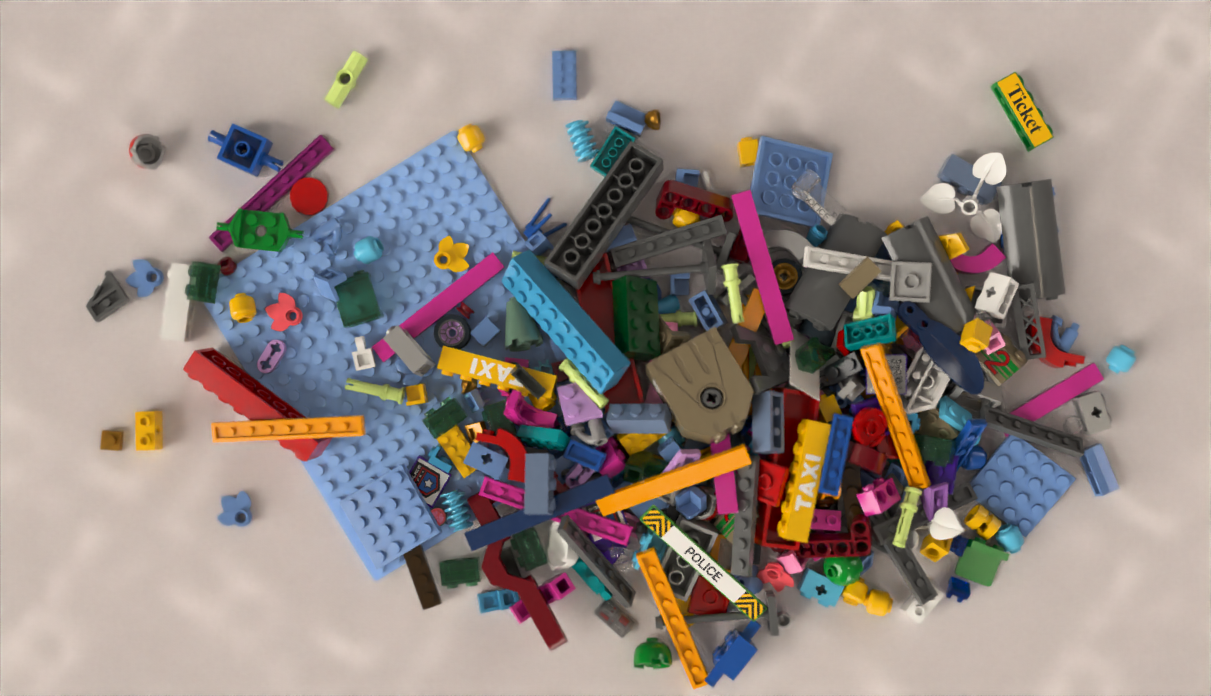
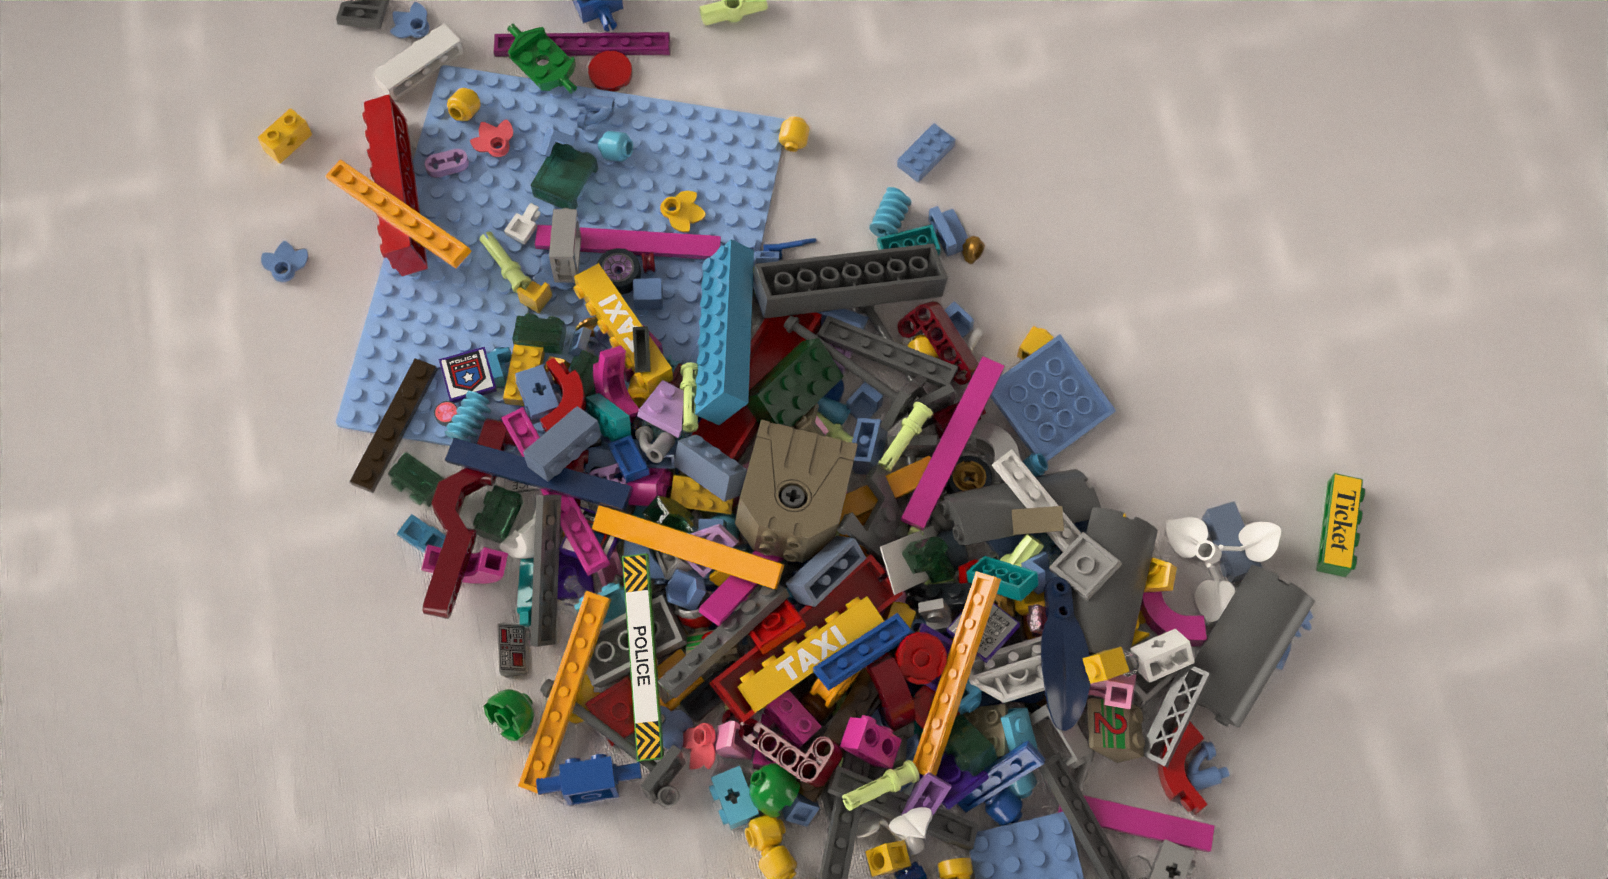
camera: 45 degrees right, 20 degrees down
(111, 440) = (247, 121): pearl gold plate -> none
(202, 282) = (453, 57): clear green brick -> none
(227, 265) = (485, 66): dark red bush -> none
(390, 516) = (406, 373): medium blue plate -> none
(510, 562) = (470, 507): pearl dark grey piece -> none
(520, 328) = (679, 316): sand green cone -> none
(817, 198) = (1063, 420): clear door -> none
(1120, 359) = (1245, 844): medium azure head -> none

